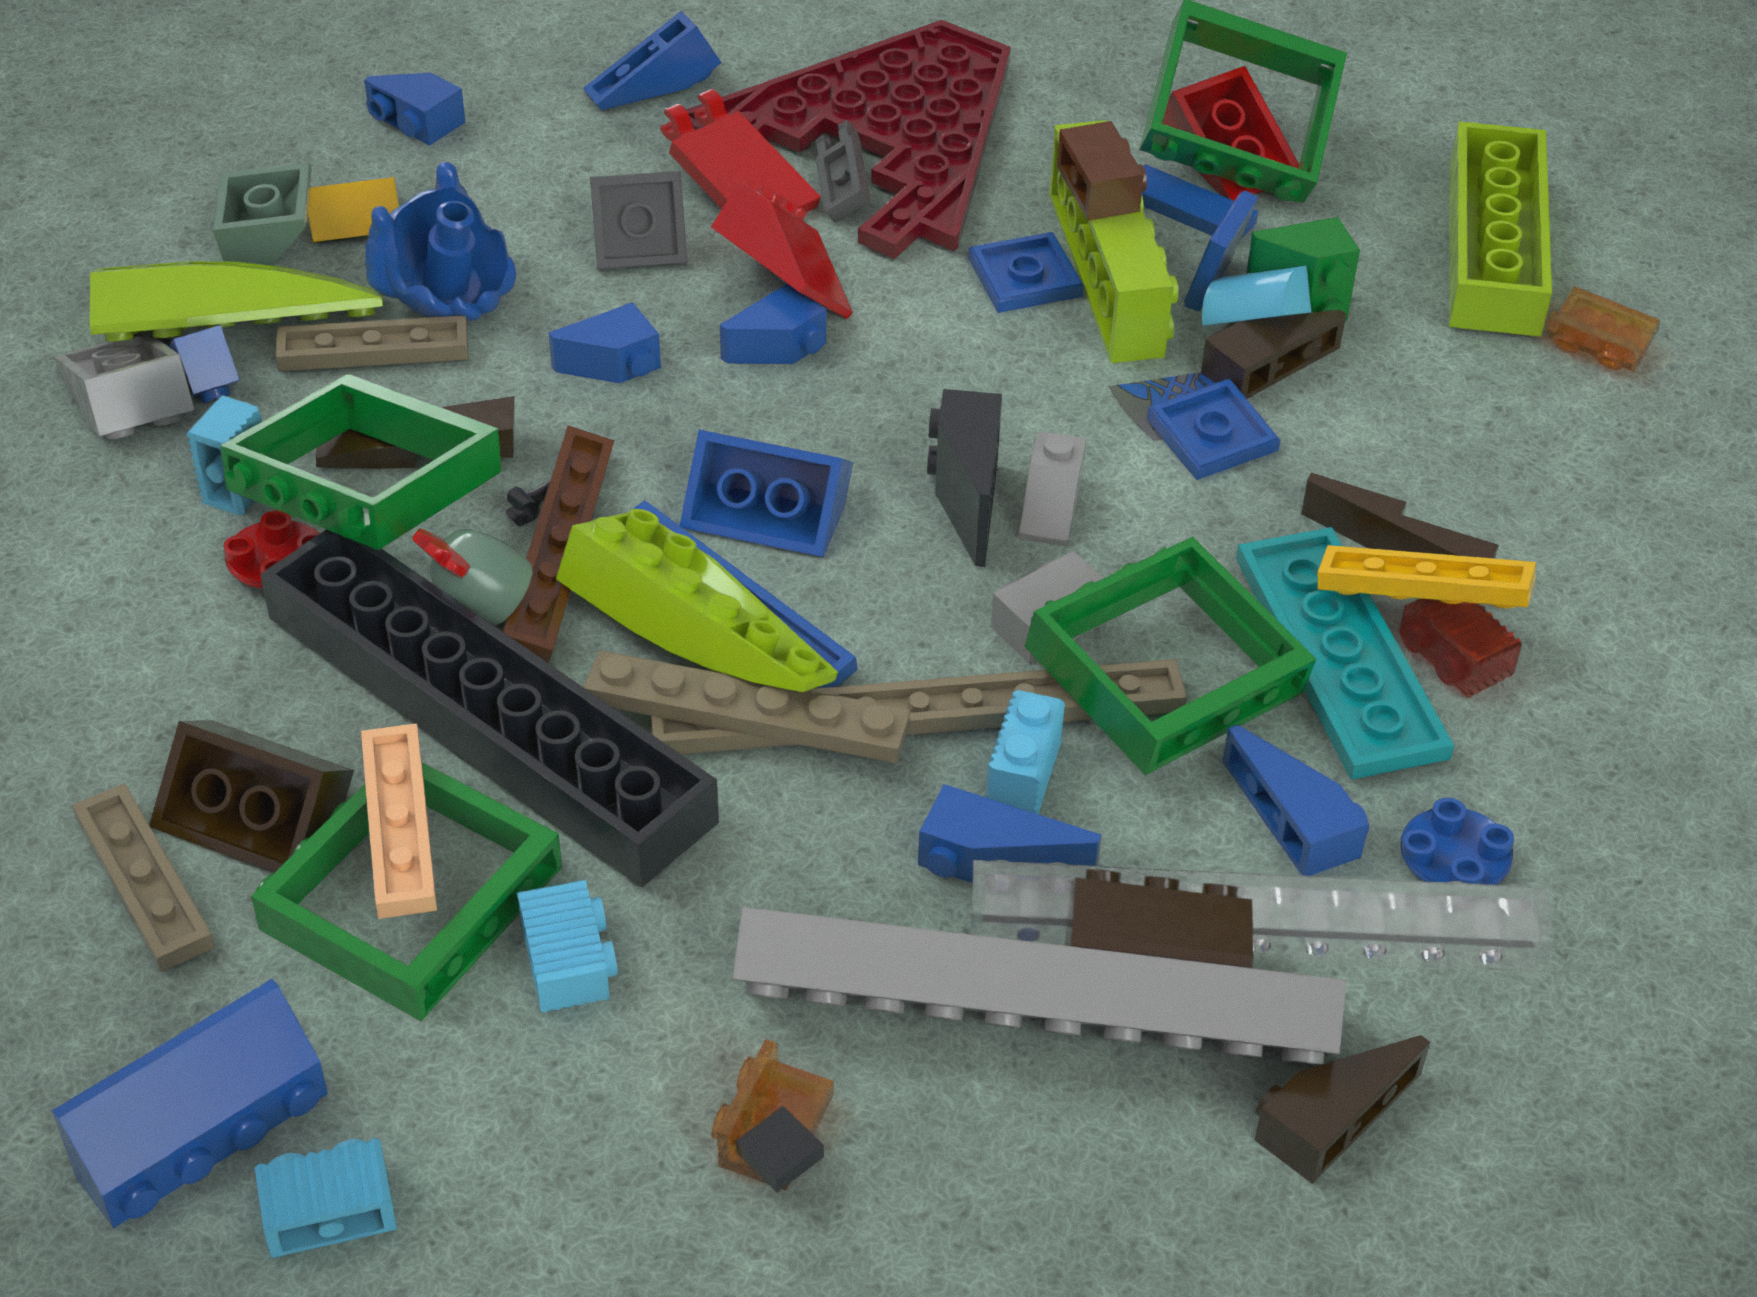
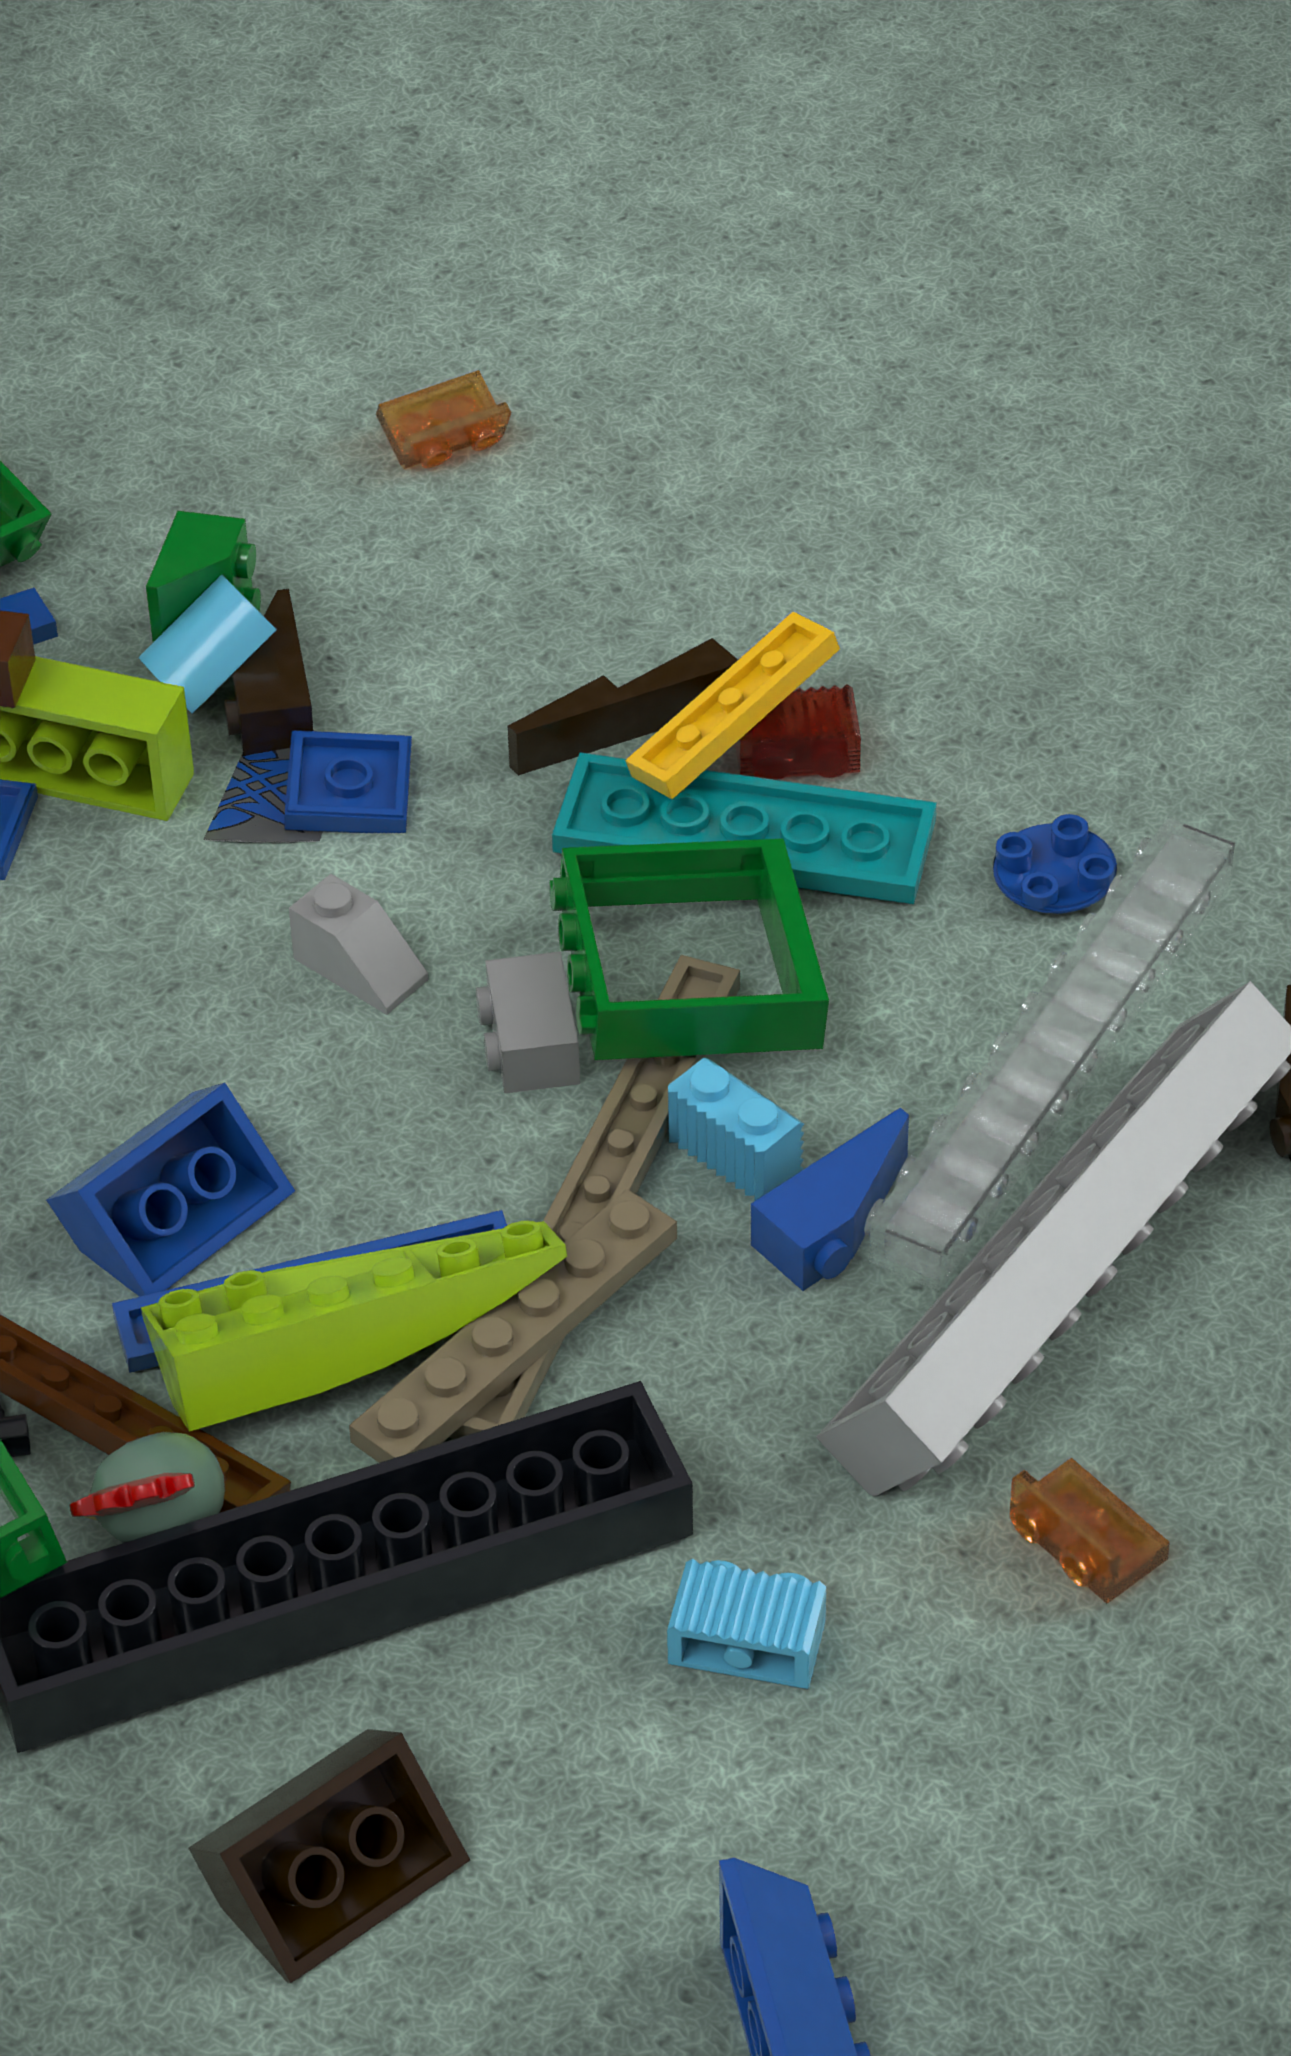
camera: 60 degrees left, 0 degrees up
(143, 877) = (382, 2002): dark tan plate -> none
(324, 1197) = (972, 1955): medium azure brick -> none
(398, 821) = (514, 1689): light nougat plate -> none
(463, 939) = (619, 1841): green window -> none
(779, 1149) = (1143, 1527): black tile -> none
(966, 463) = (301, 993): black slope -> none
(1160, 919) = (1072, 1100): dark brown slope -> none
(1220, 249) = (104, 623): blue tile -> none
(1298, 804) = (930, 952): blue slope -> none
(1499, 229) = (238, 414): lime brick -> none

